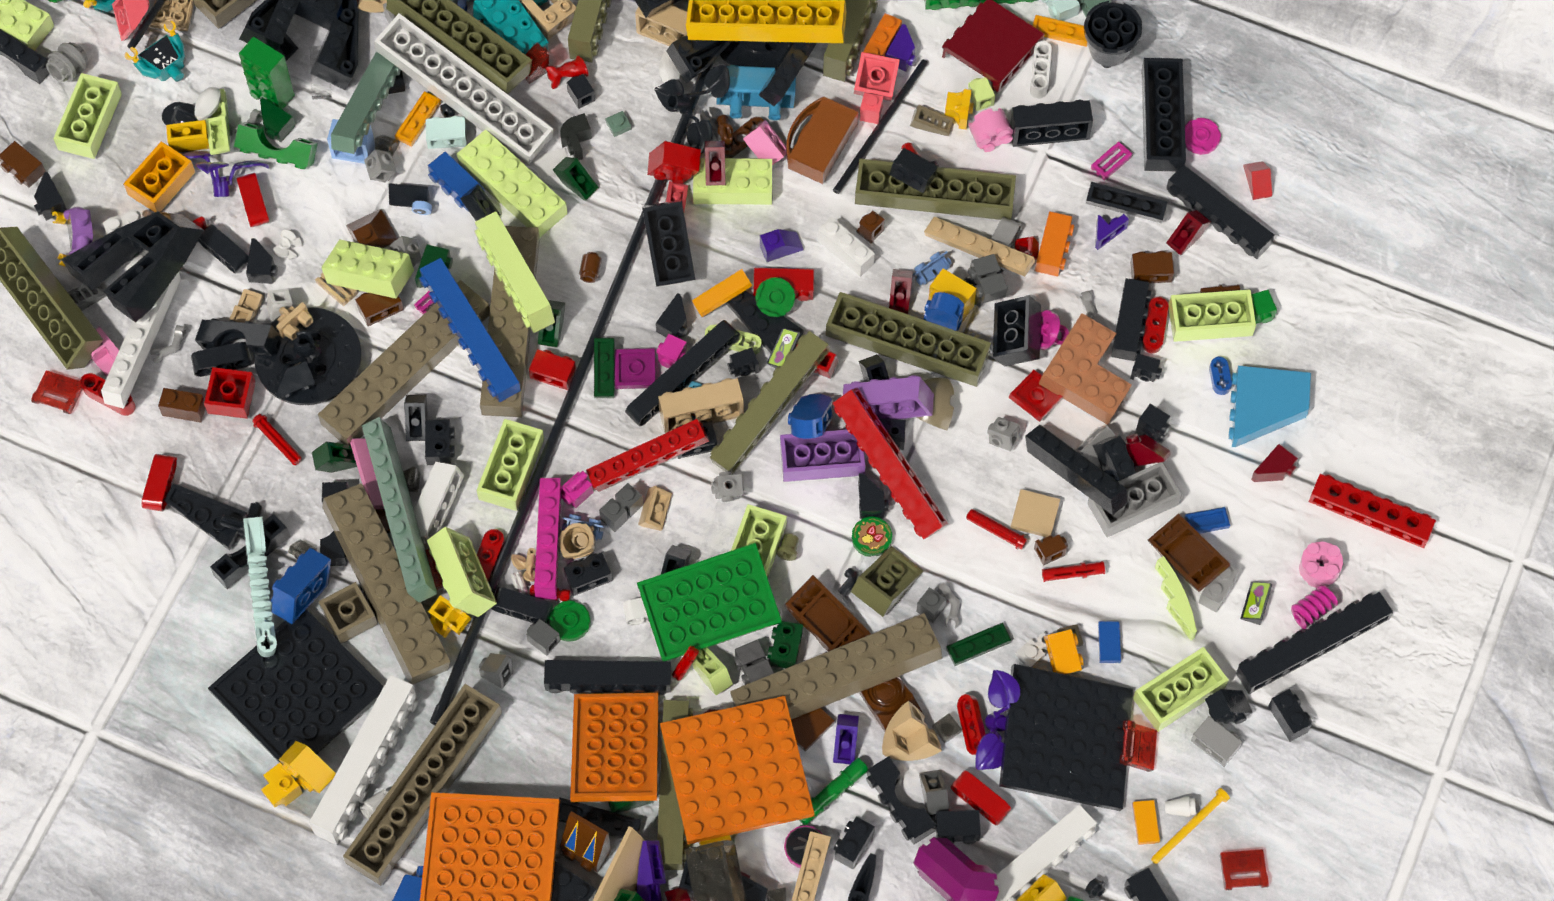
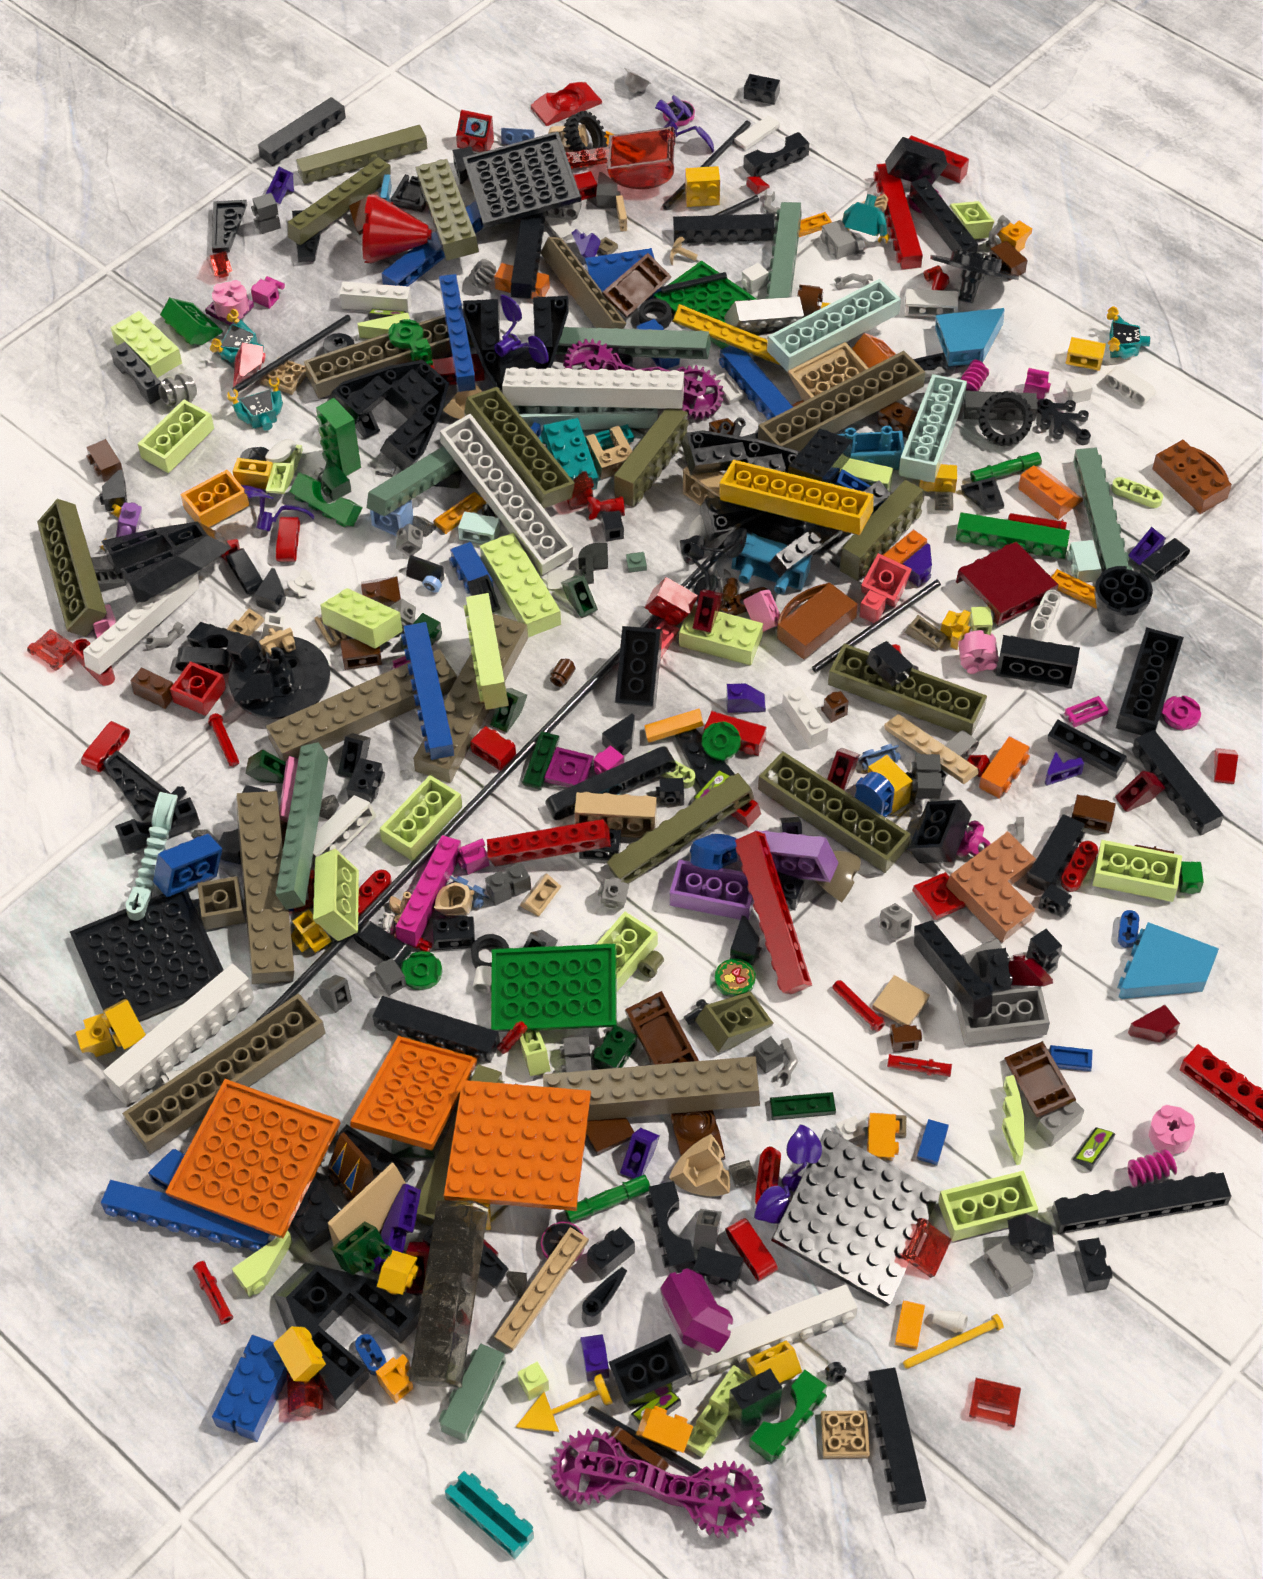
camera: 20 degrees right, 10 degrees down
(623, 571) = (483, 942): none -> black tyre

